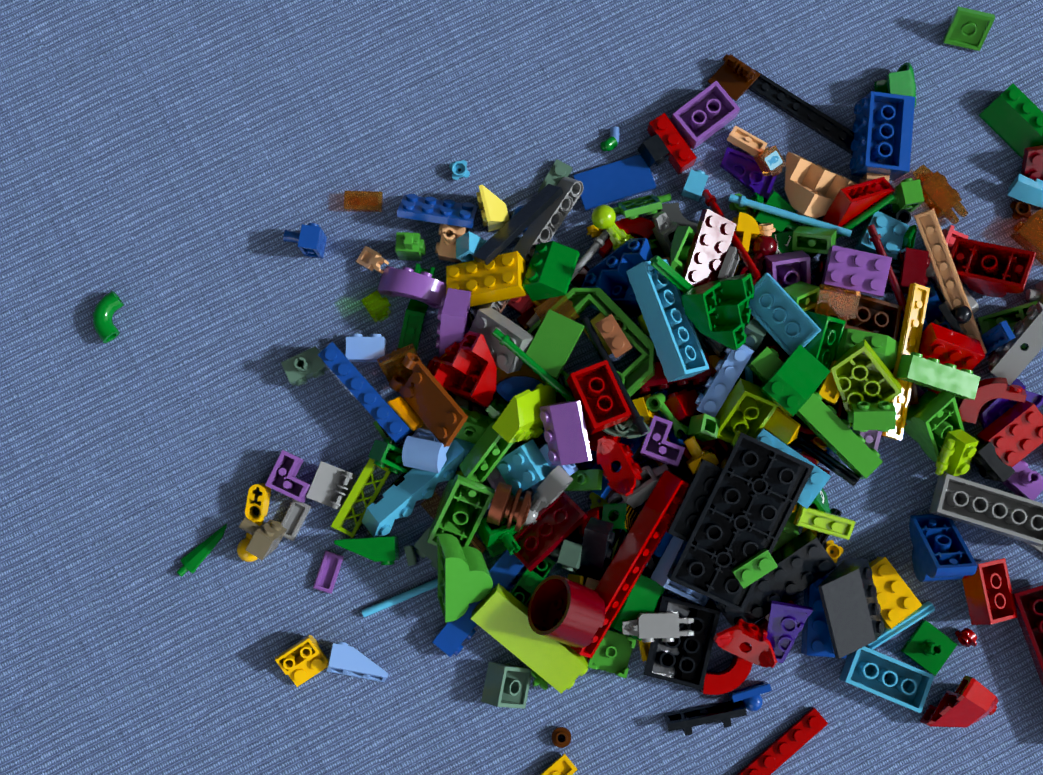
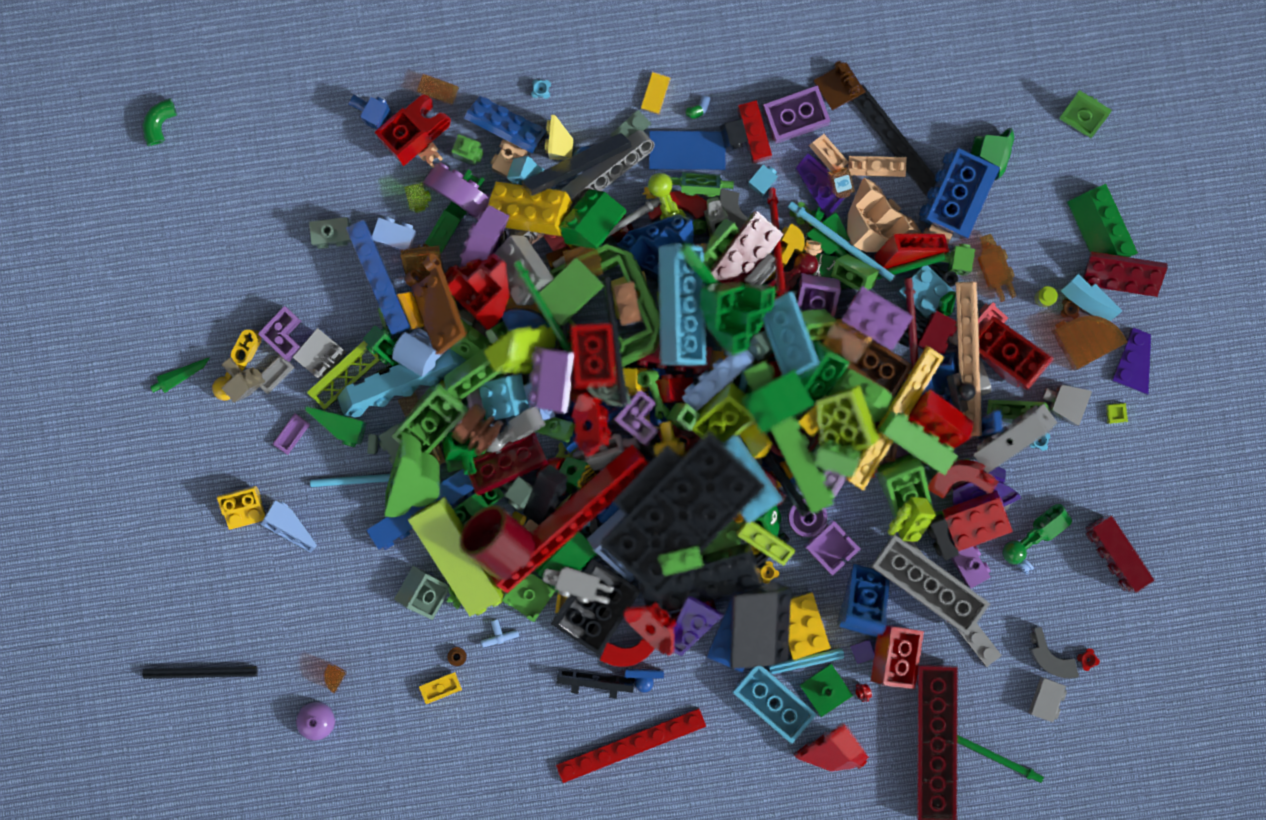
camera: 15 degrees right, 5 degrees up
(351, 245) = (411, 131): none -> red brick
(567, 140) = (655, 93): none -> yellow tile
(596, 704) = (499, 638): none -> light blue piece
(797, 137) = (877, 166): none -> light nougat plate
(845, 495) = (807, 528): none -> medium lavender brick
(882, 507) = (830, 547): none -> medium lavender piece
(950, 597) = (862, 651): none -> dark purple slope
(995, 205) = (1046, 296): none -> lime brick

